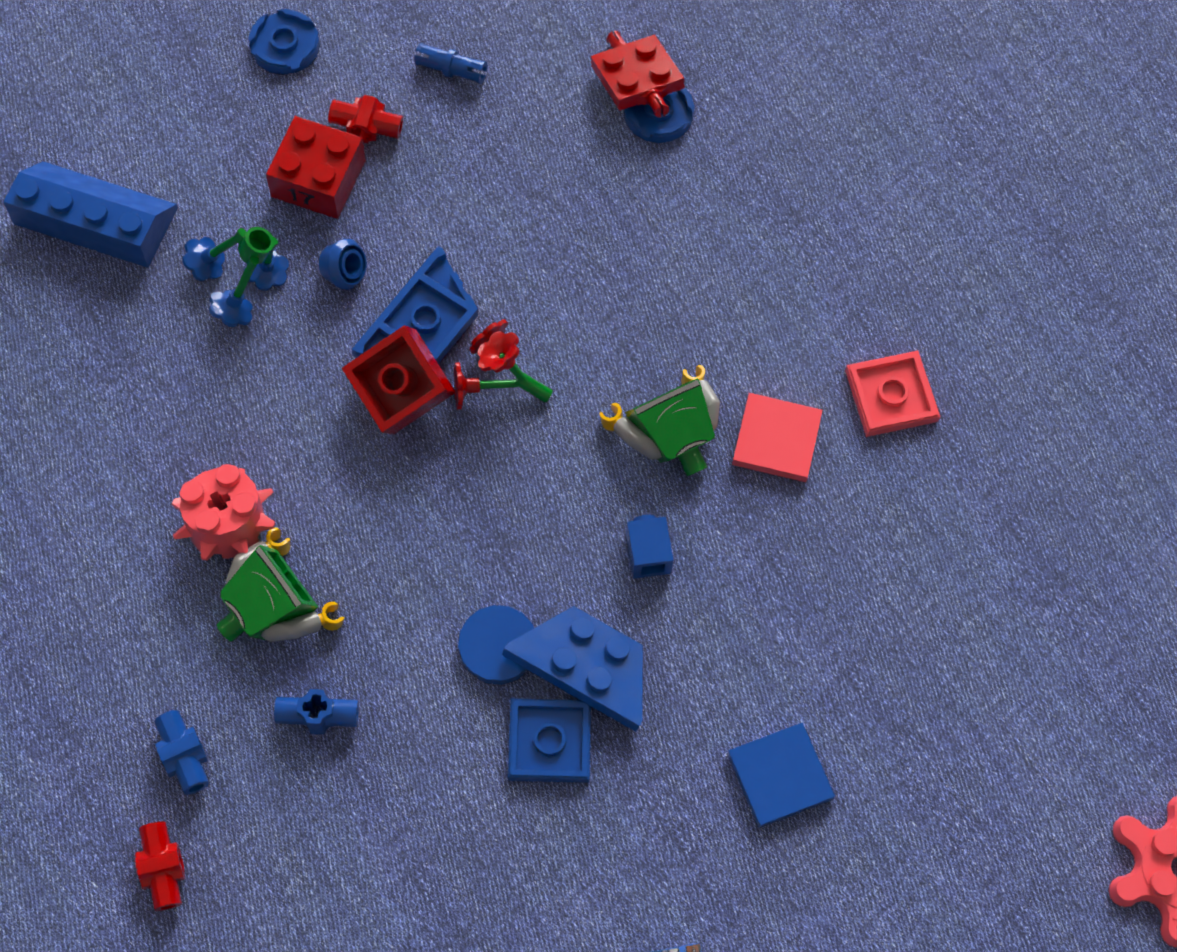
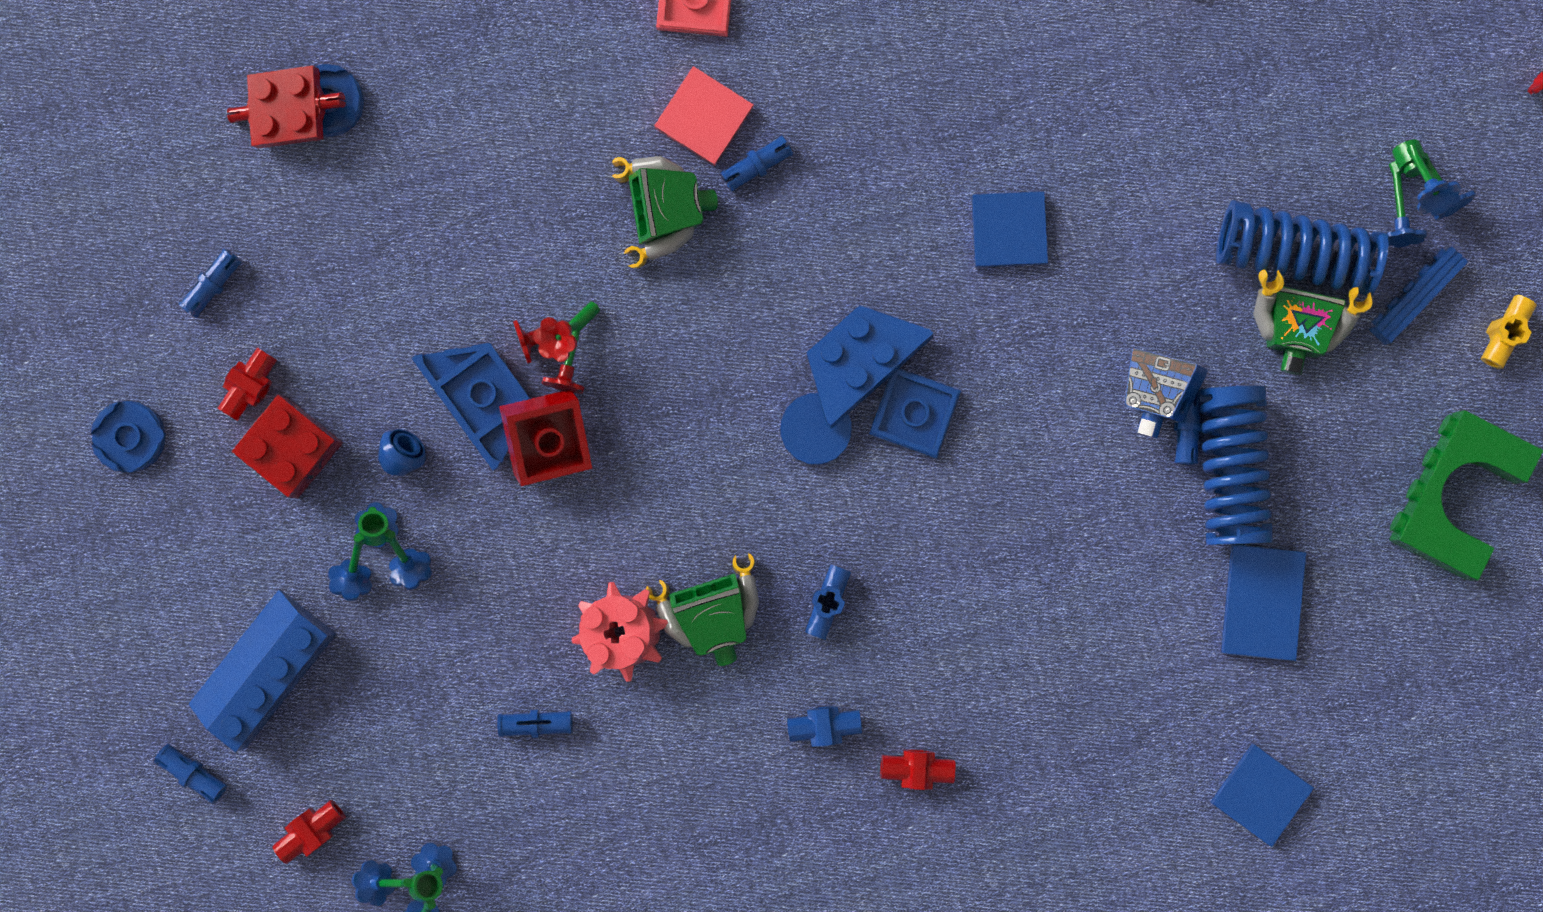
camera: 65 degrees left, 20 degrees up
(99, 448) = (510, 723): none -> blue pin
(649, 546) = (772, 267): blue brick -> none
(749, 500) = (756, 163): none -> blue pin

